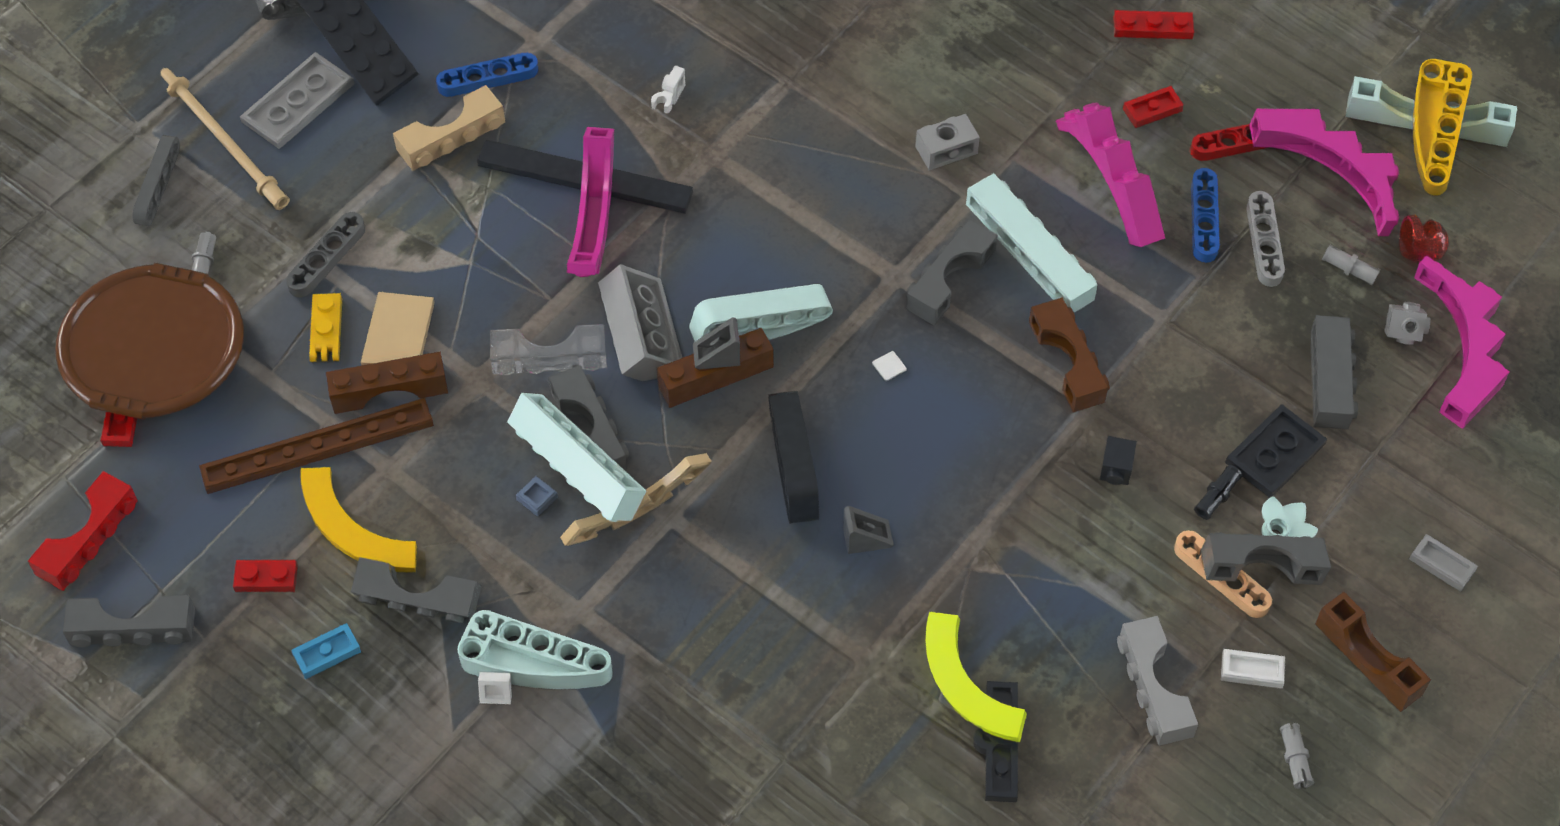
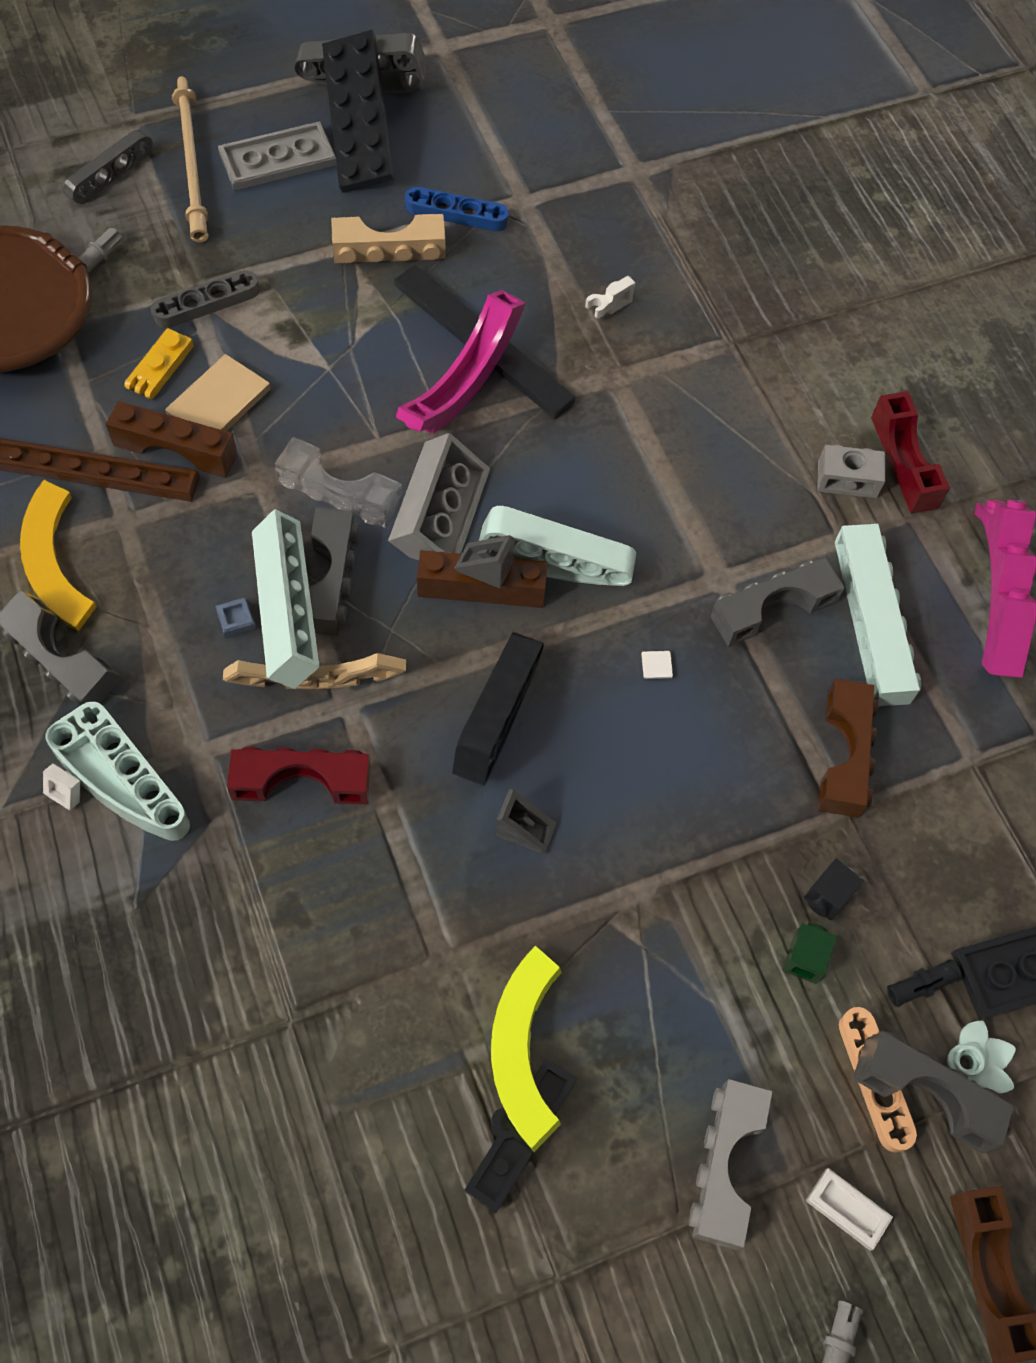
camera: 25 degrees right, 5 degrees up
(706, 567) = (257, 772): none -> dark red arch
(960, 86) = (896, 425): none -> dark red arch
(1127, 513) = (809, 952): none -> dark green brick

